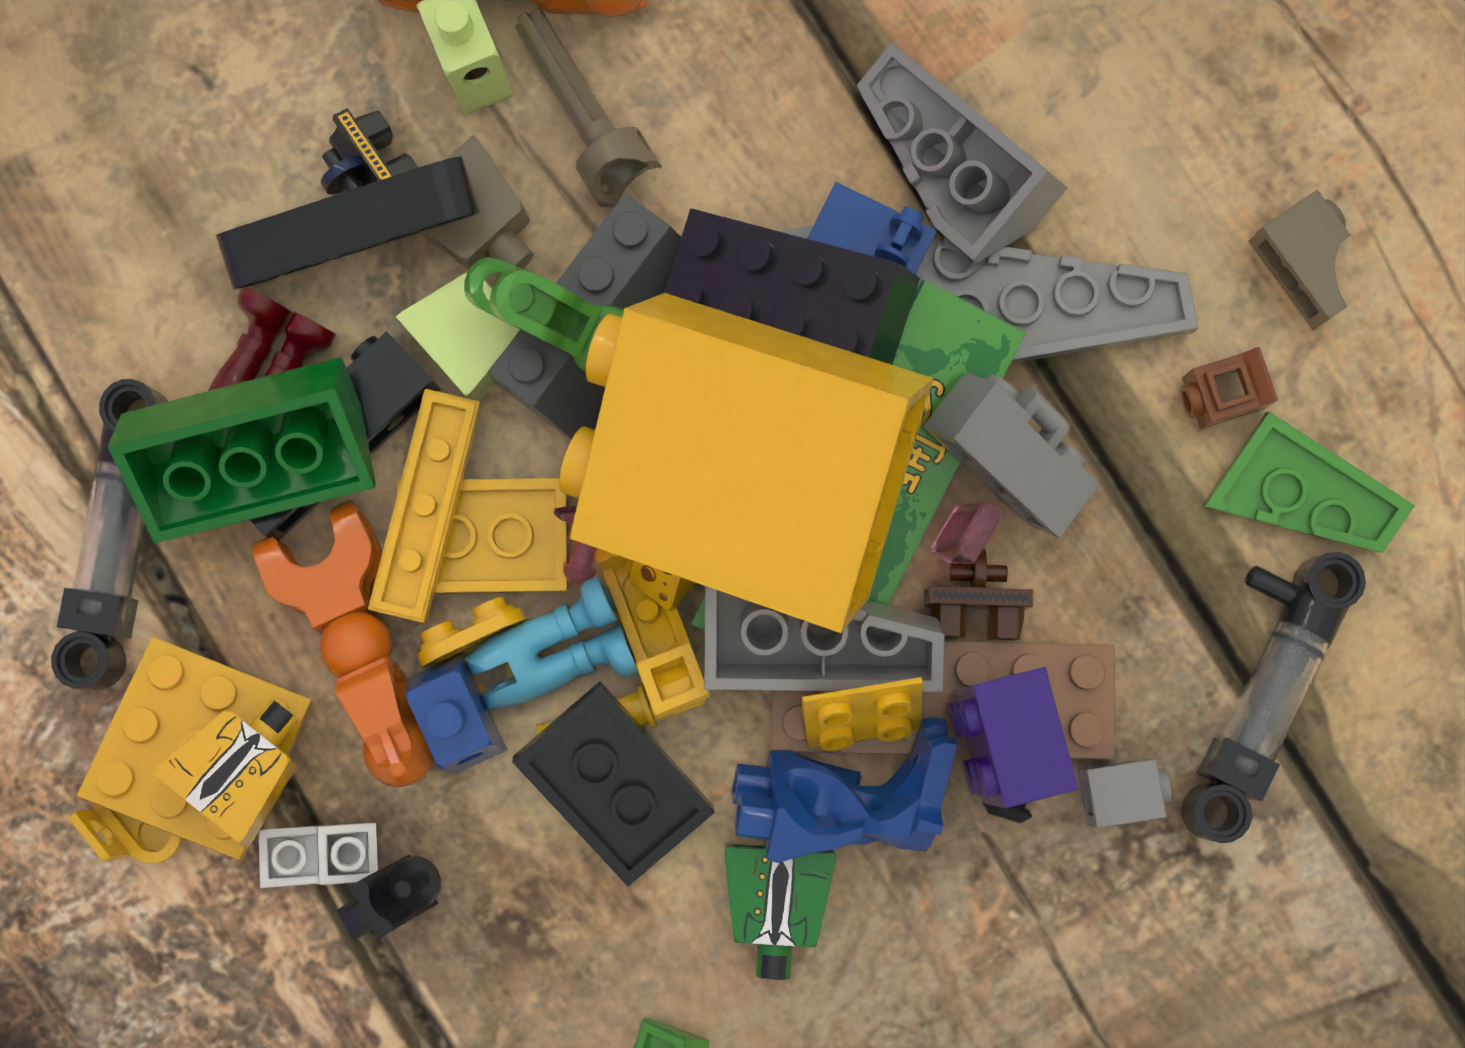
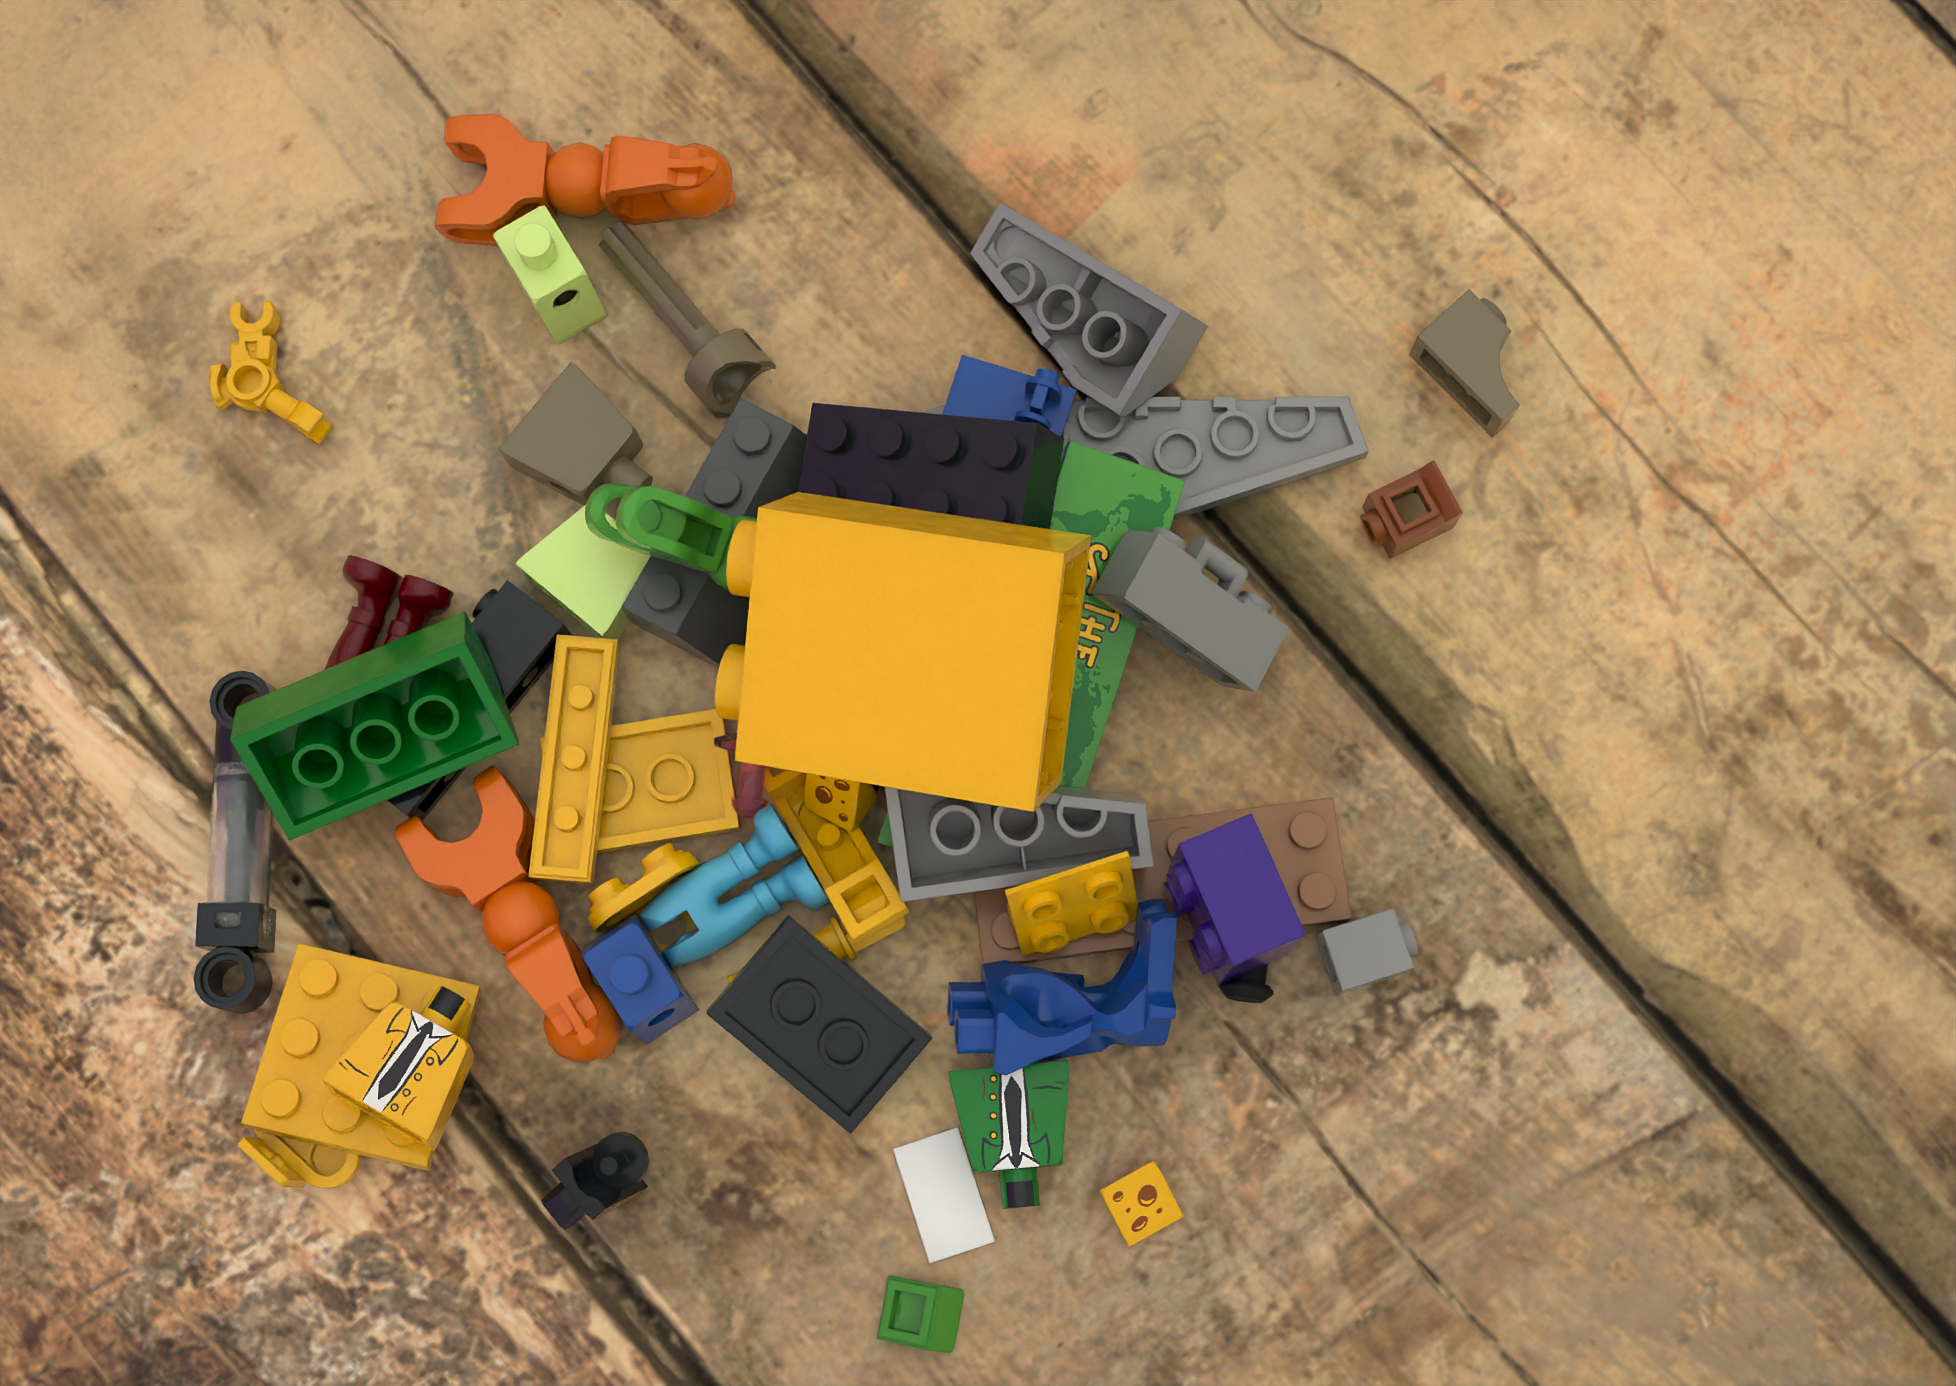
camera: 10 degrees left, 5 degrees down
(181, 106) = (253, 375): none -> yellow piece
(317, 854) = (507, 1152): white slope -> none
(348, 223) = (450, 472): black beam -> none
(355, 153) = (455, 416): pearl dark grey hips -> none
(704, 952) = (943, 1195): none -> white sticker
(881, 988) = (1141, 1203): none -> yellow slope
(966, 532) = (1155, 699): clear pink tile -> none
(1004, 605) = (1208, 771): reddish brown hips -> none
(1245, 754) = (1490, 889): piece -> none
(1307, 489) = (1511, 603): bright green wing -> none

